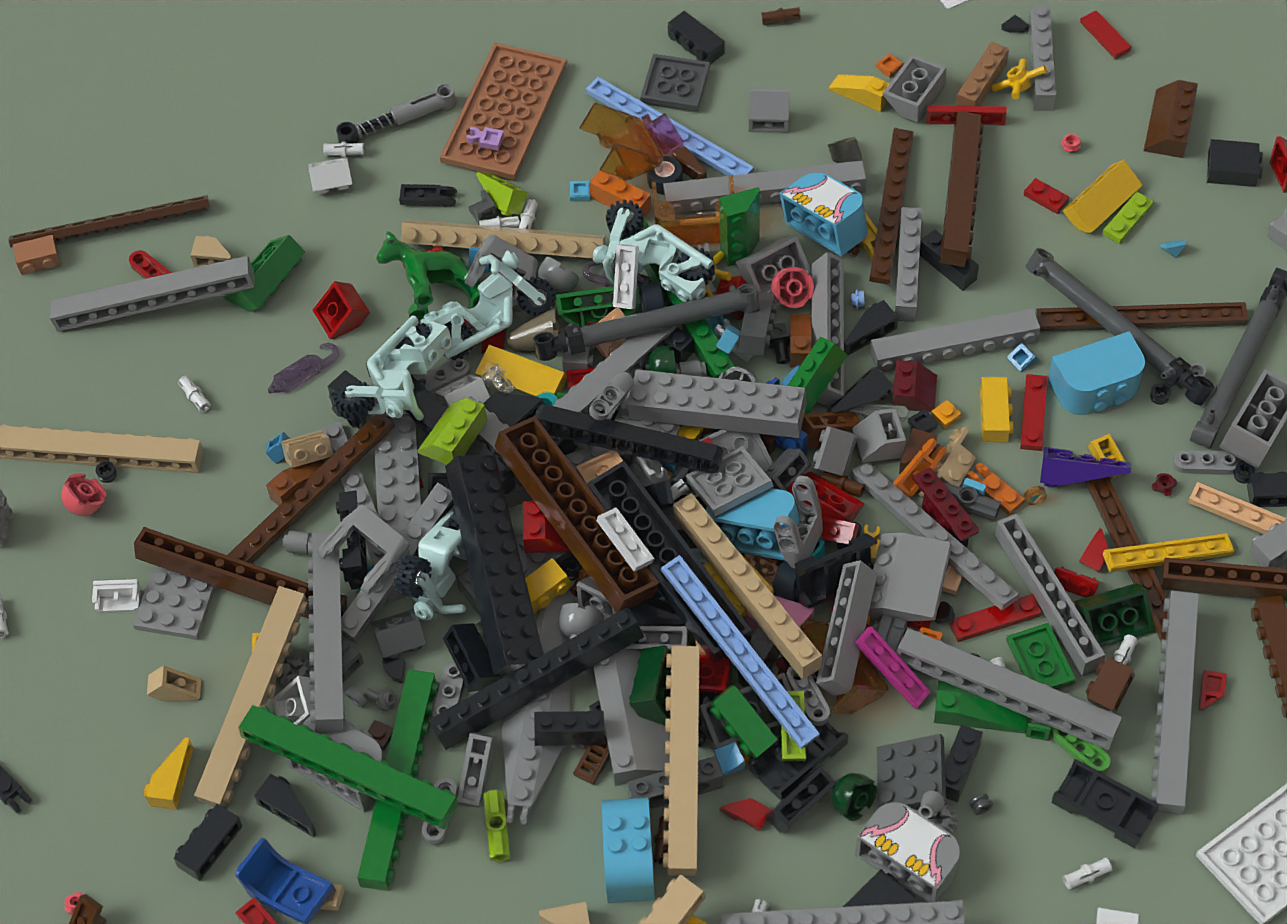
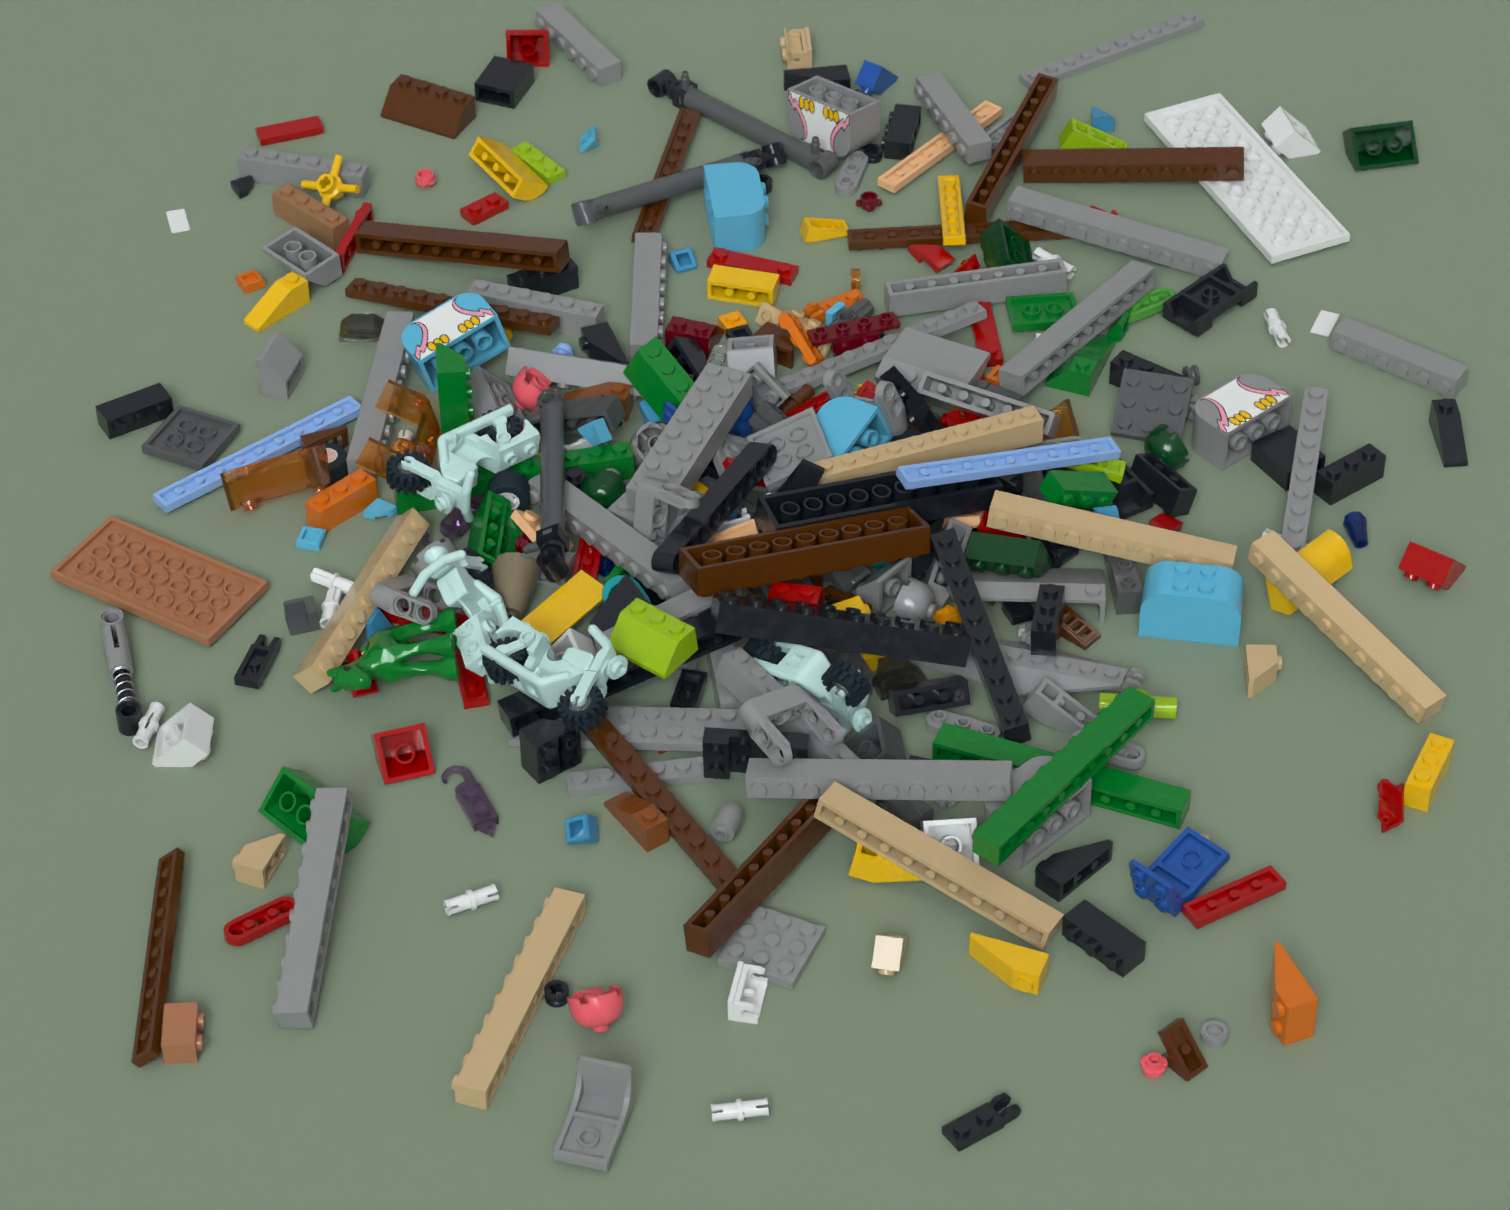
camera: 80 degrees left, 15 degrees down
(307, 448) = (603, 795): tan hinge -> none
(488, 138) = (206, 587): lavender plate -> none
(495, 377) = (572, 619): clear plate -> none
(505, 195) = (301, 584): lime slope -> none
(625, 276) = (489, 483): white plate -> none
(625, 539) = (858, 510): white plate -> none
(663, 132) = (275, 445): clear pink panel -> none
(780, 15) = (135, 344): reddish brown pin -> none
(892, 667) = (1033, 393): dark pink tile -> none
(931, 803) = (1201, 384): light grey cone -> none
(1064, 468) = (836, 246): dark purple wedge -> none
(1110, 685) = (1094, 260): reddish brown brick -> none

